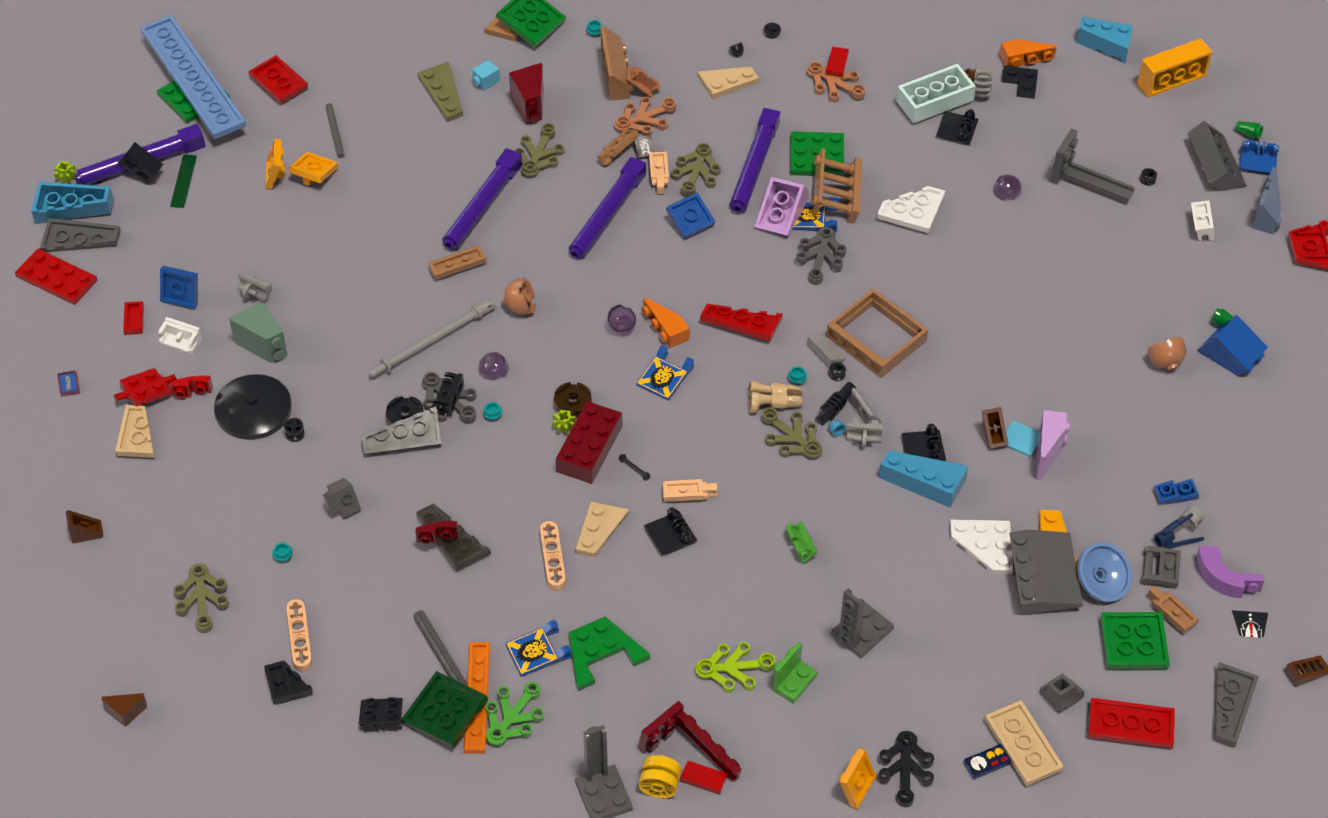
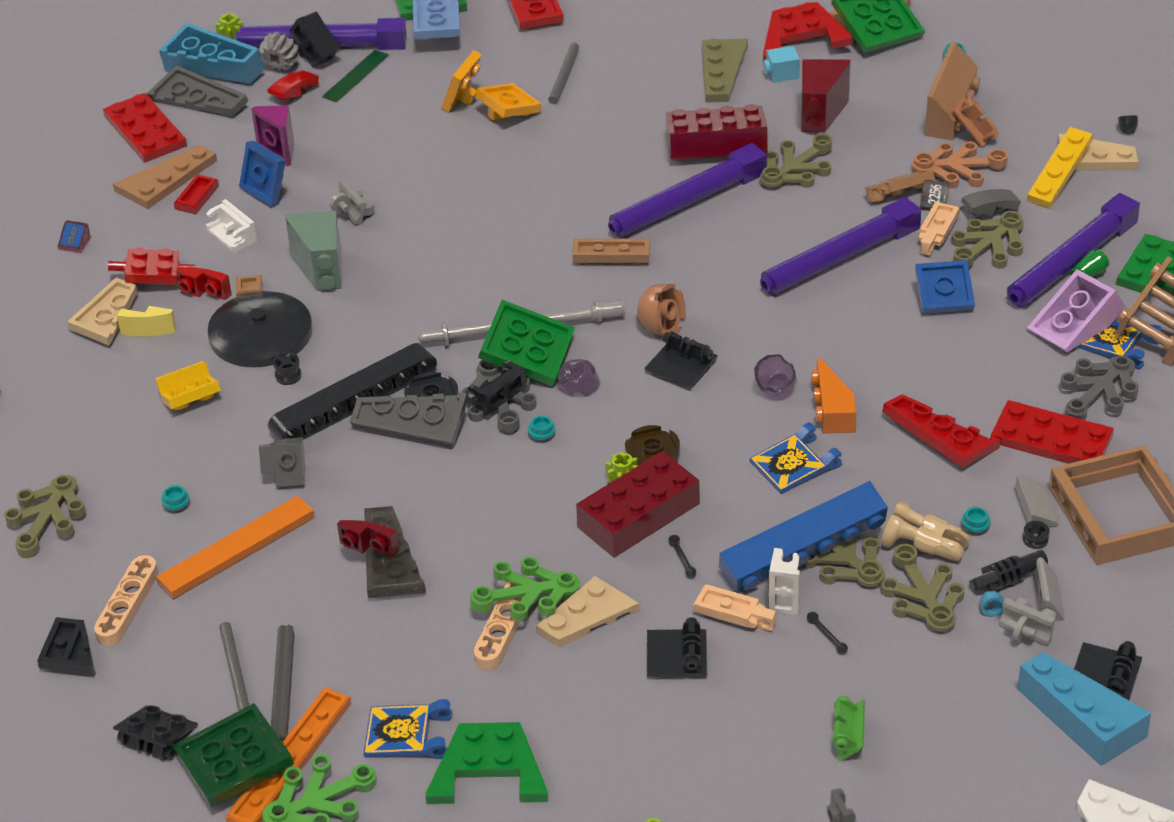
camera: 30 degrees right, 10 degrees down
(99, 314) = (164, 177): none -> medium nougat wing
(120, 181) = (279, 51): none -> light grey gear
(145, 205) = (291, 85): none -> red slope
(164, 250) = (274, 130): none -> magenta slope
(165, 434) = (153, 322): none -> light yellow slope
(222, 377) = (248, 284): none -> medium nougat tile
(235, 469) = (187, 385): none -> yellow bracket
(345, 570) = (235, 547): none -> orange tile
(350, 434) = (339, 399): none -> black beam
(402, 652) = (234, 665): none -> dark grey bar
(447, 352) = (527, 341): none -> green plate
(474, 146) = (715, 131): none -> dark red brick
(480, 36) = (802, 23): none -> red wing
(552, 329) = (681, 359): none -> black hinge
(574, 515) = (560, 584): none -> bright green plant
(681, 140) = (987, 201): none -> dark grey slope
(706, 427) = (804, 534): none -> blue brick
(713, 99) = (1060, 167): none -> yellow plate
(713, 463) = (784, 584): none -> white hinge
(731, 428) = (866, 572): none -> olive plant
(736, 478) = (813, 618): none -> black hinge
(770, 168) = (1092, 264): none -> green cone
(810, 298) = (1051, 433): none -> red plate

